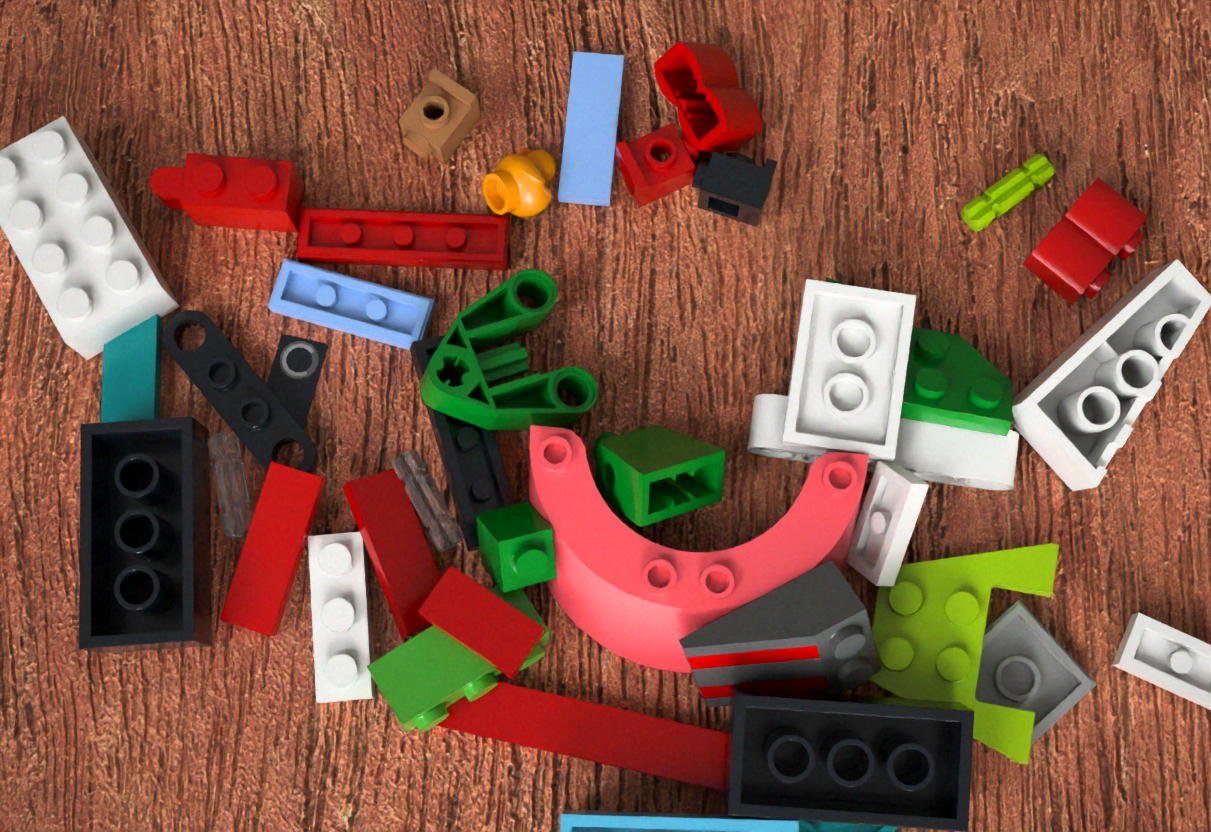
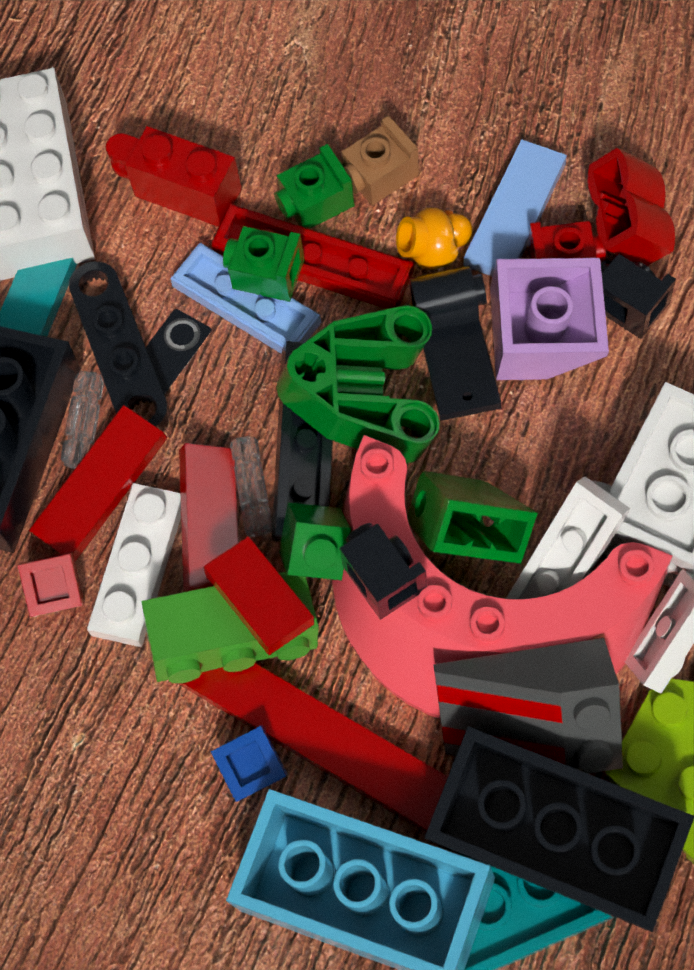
camera: 25 degrees right, 10 degrees down
(262, 667) = (51, 584): none -> tile
(373, 276) = (264, 262): none -> green brick
(389, 183) = (315, 189): none -> green brick
(525, 784) = (249, 763): none -> blue plate
(585, 298) = (457, 349): none -> black door
(597, 562) = (381, 569): none -> black brick
(664, 237) = (547, 316): none -> lavender slope
(766, 477) = (571, 542): none -> white plate

